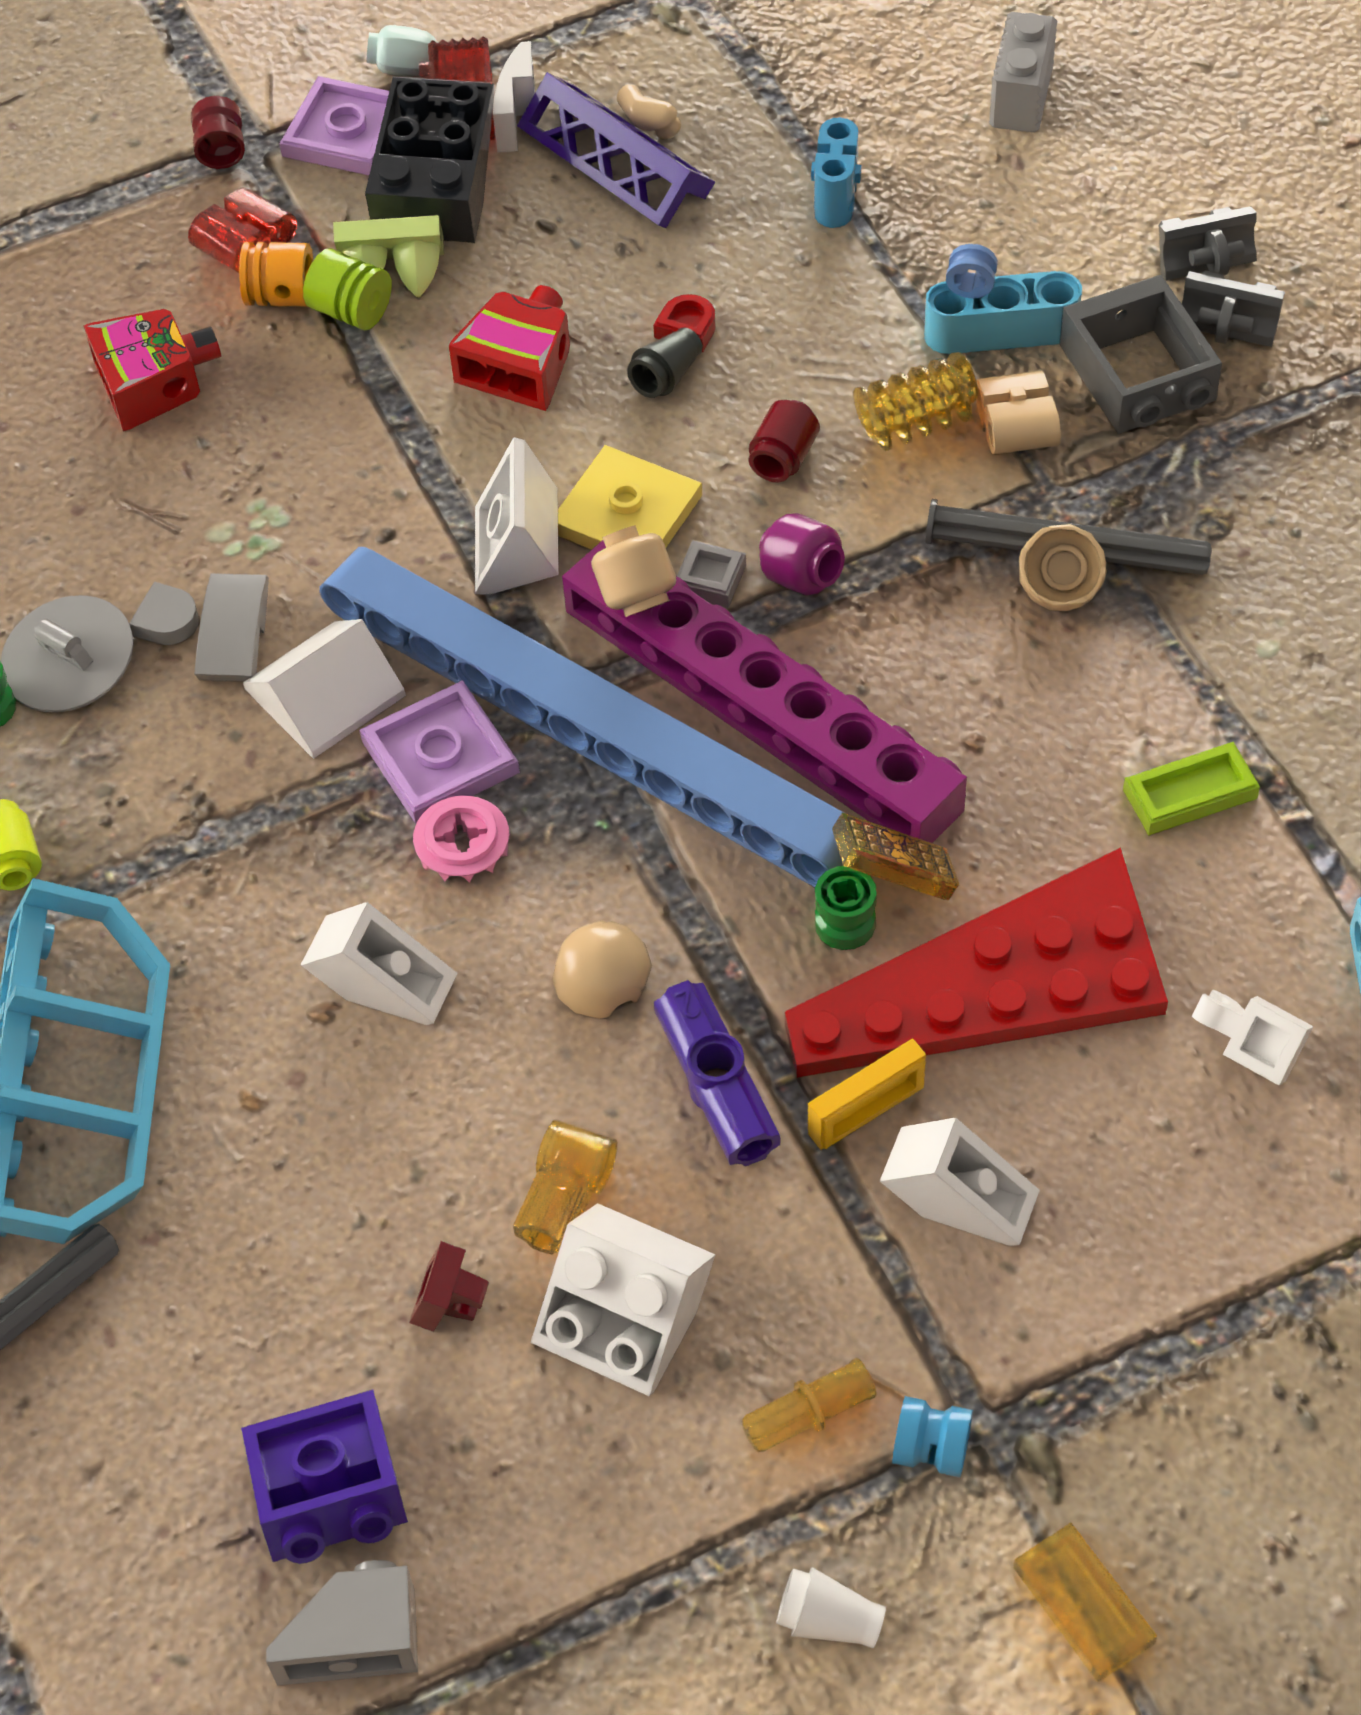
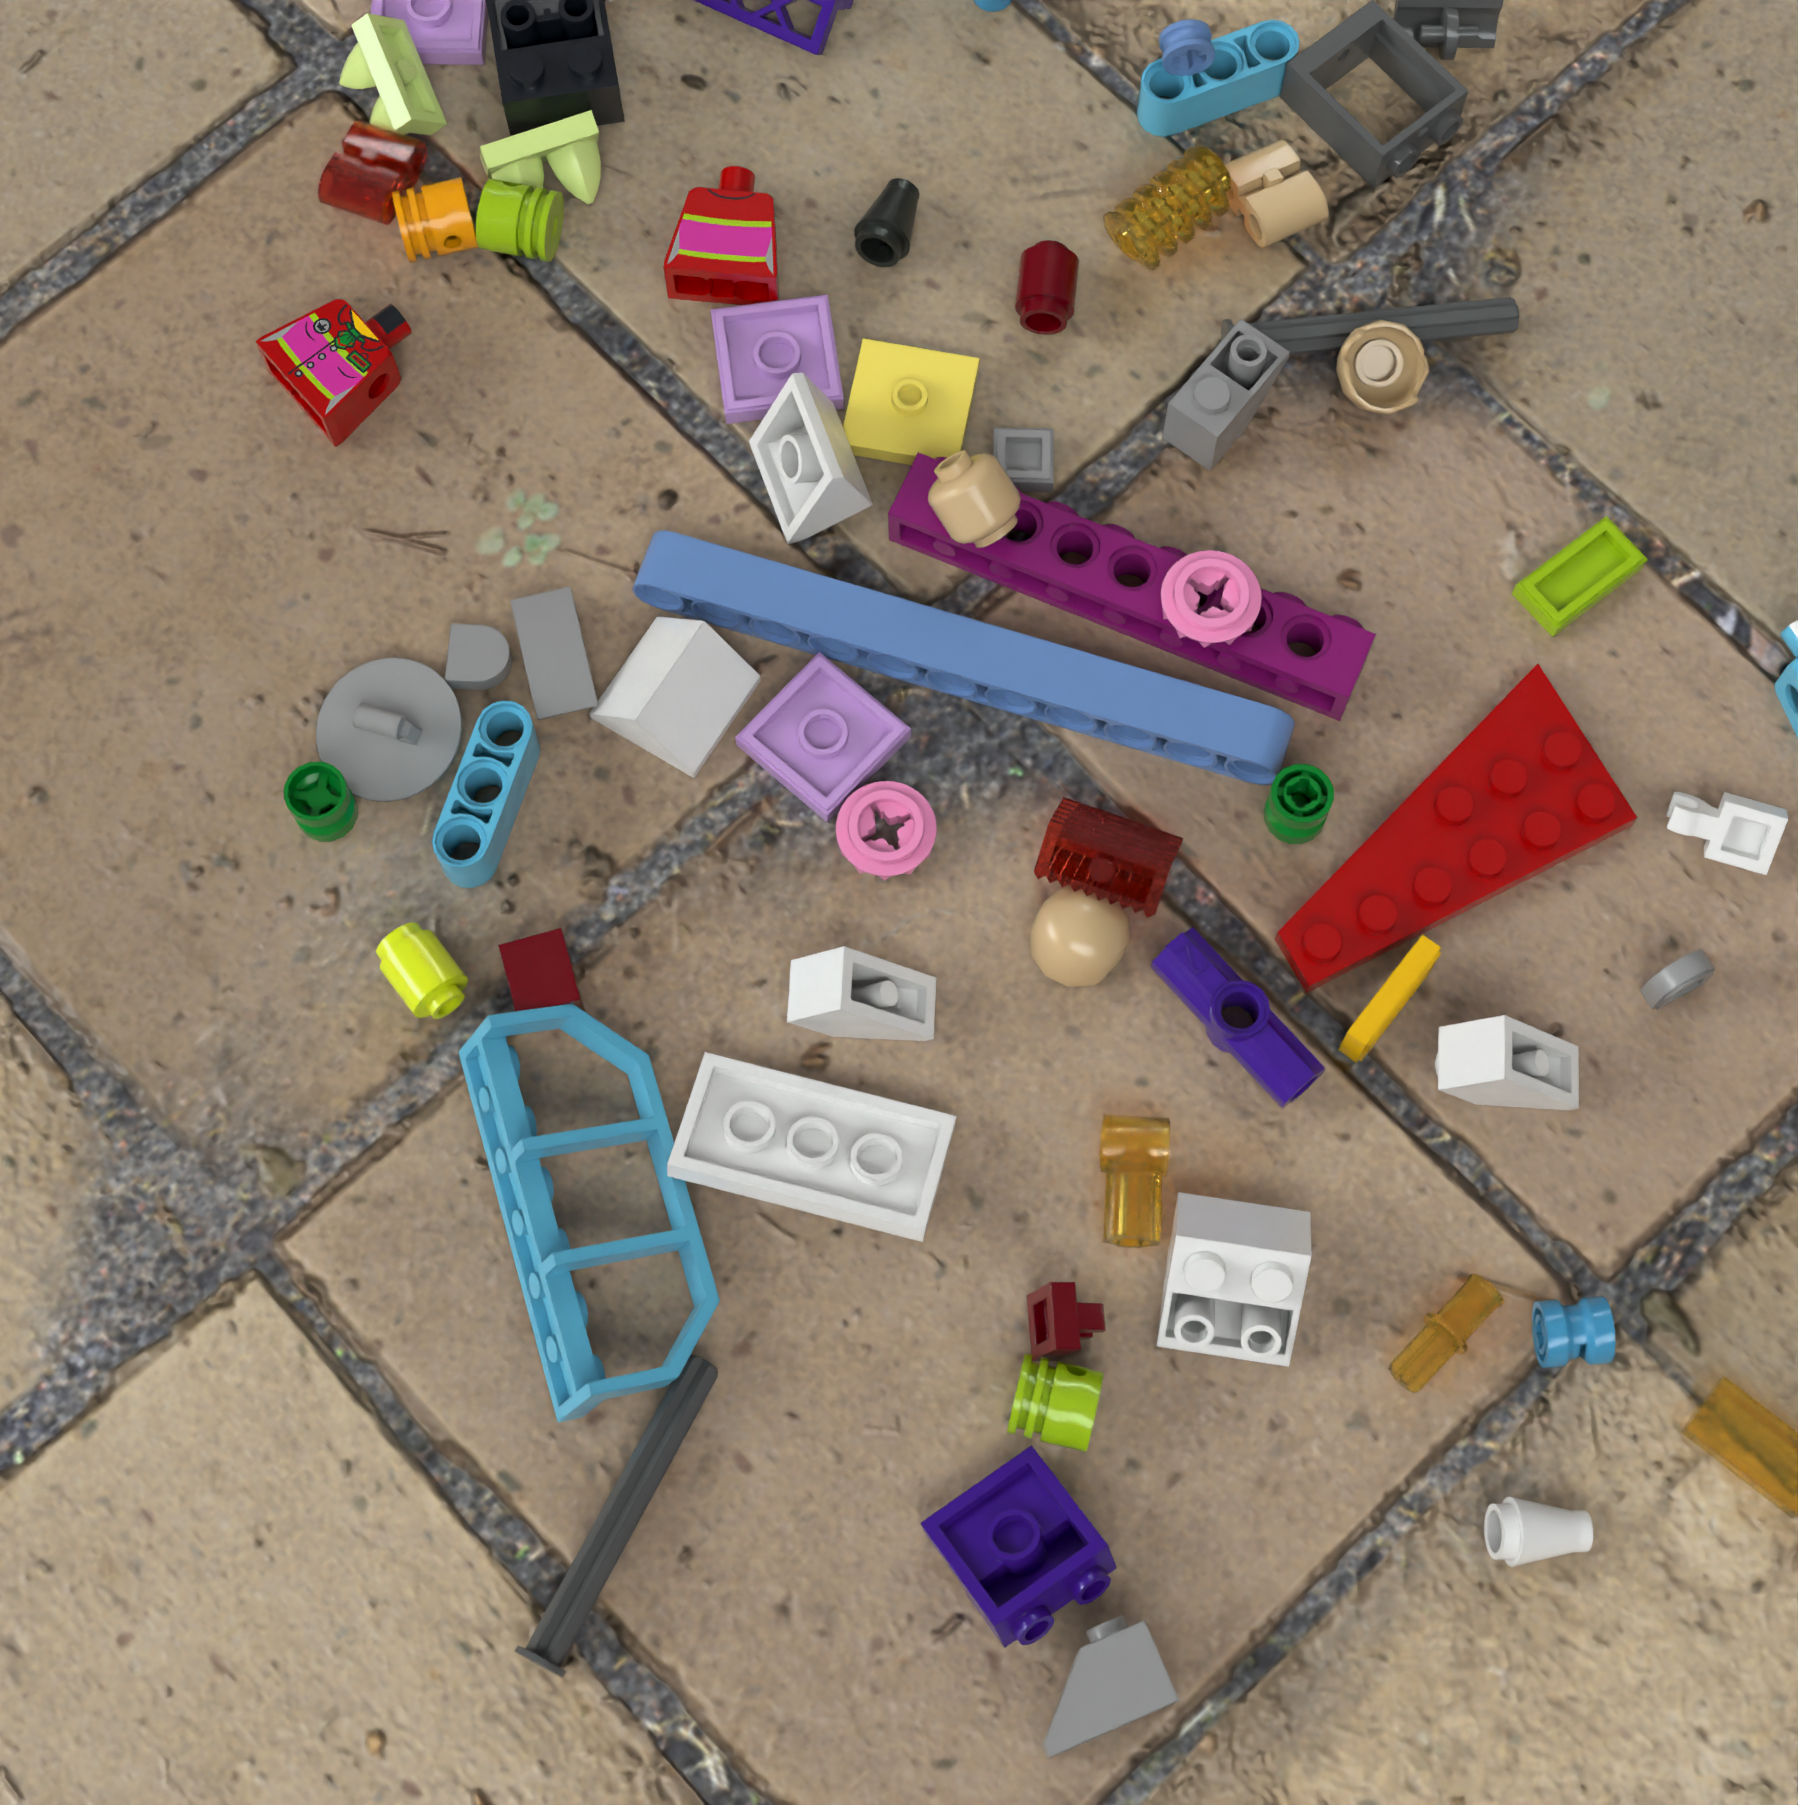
camera: 20 degrees left, 15 degrees up
(107, 866) = (541, 971): none -> dark red panel
(122, 720) = (480, 767): none -> medium azure beam
(217, 132) = (293, 50): dark red wheel -> none
(281, 1077) = (812, 1146): none -> white plate
(292, 160) = (390, 61): none -> yellowish green tile
(409, 1356) = (1056, 1402): none -> lime piece
(549, 428) = (766, 344): none -> lavender tile
(647, 901) = (1108, 856): none -> clear red brick
(687, 312) = (888, 158): red tile -> none
(801, 554) = (1114, 417): magenta head -> none
(825, 687) = (1204, 573): none -> bright pink gear
(895, 856) = (1332, 738): clear yellow tile -> none
(905, 557) = (1223, 394): none -> light grey slope
(1156, 1150) = (1678, 979): none -> light grey tile

